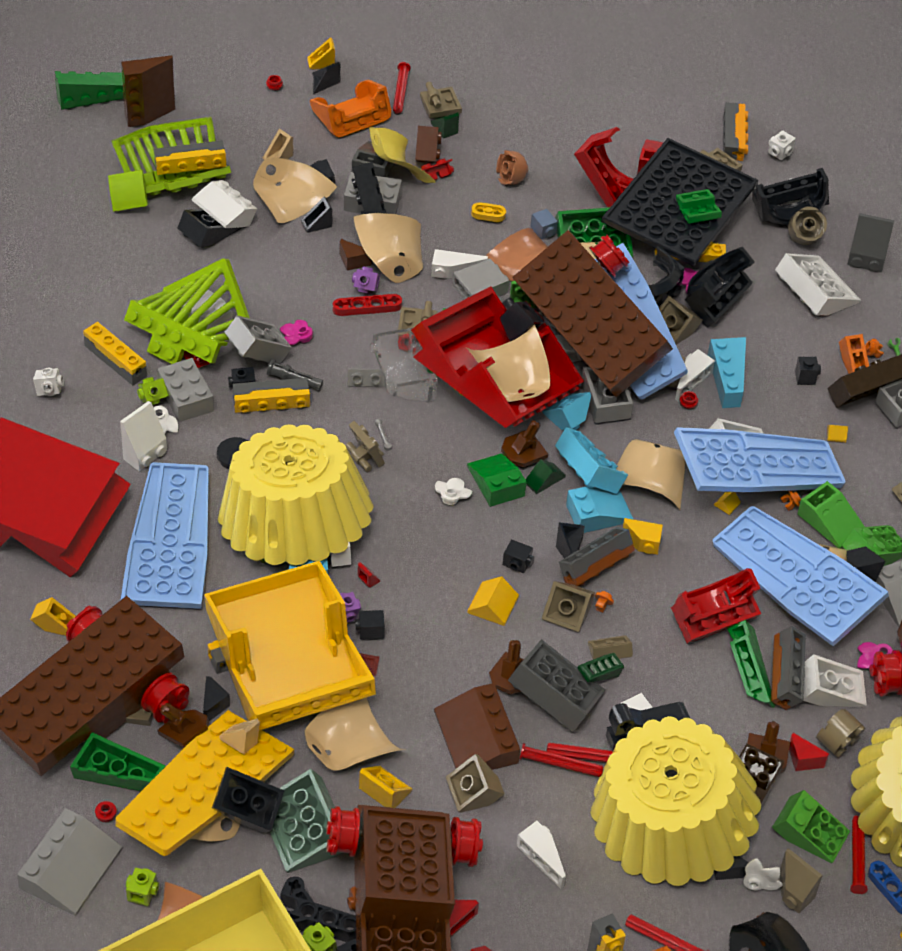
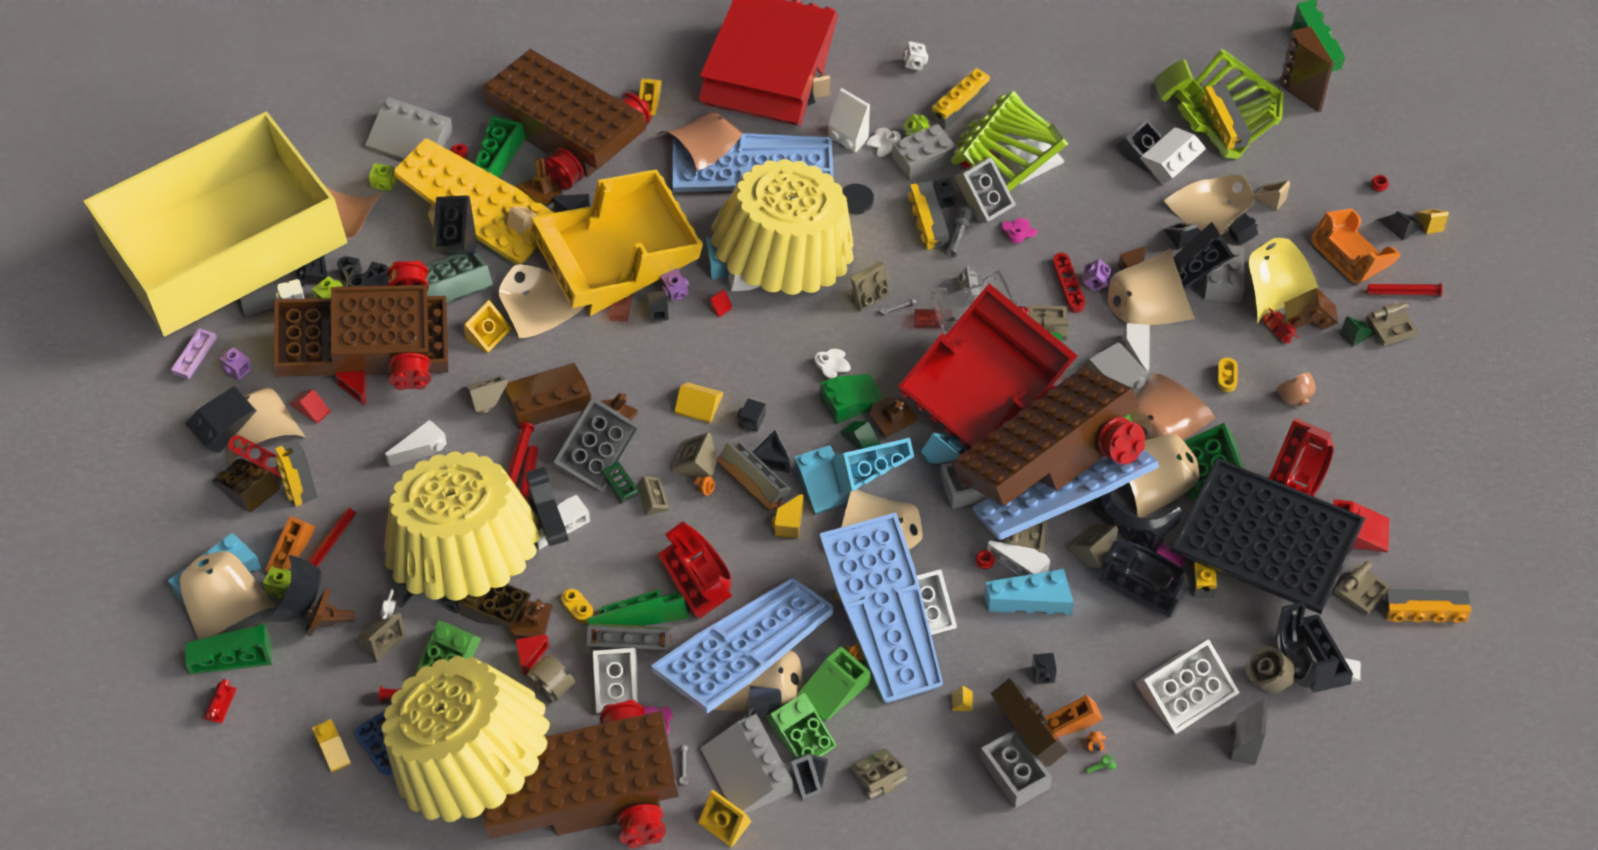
camera: 90 degrees right, 5 degrees up
(128, 568) = (707, 138): none -> nougat piece
(400, 411) = (926, 318): none -> clear red tile
(518, 366) = (973, 380): tan piece -> none
(519, 318) = (1032, 388): black torso -> none
(544, 224) = (1220, 416): sand blue brick -> none
(698, 206) = (1255, 546): green slope -> none
(746, 715) = (577, 604): none -> yellow plate
(781, 145) = (1412, 652): white brick -> none

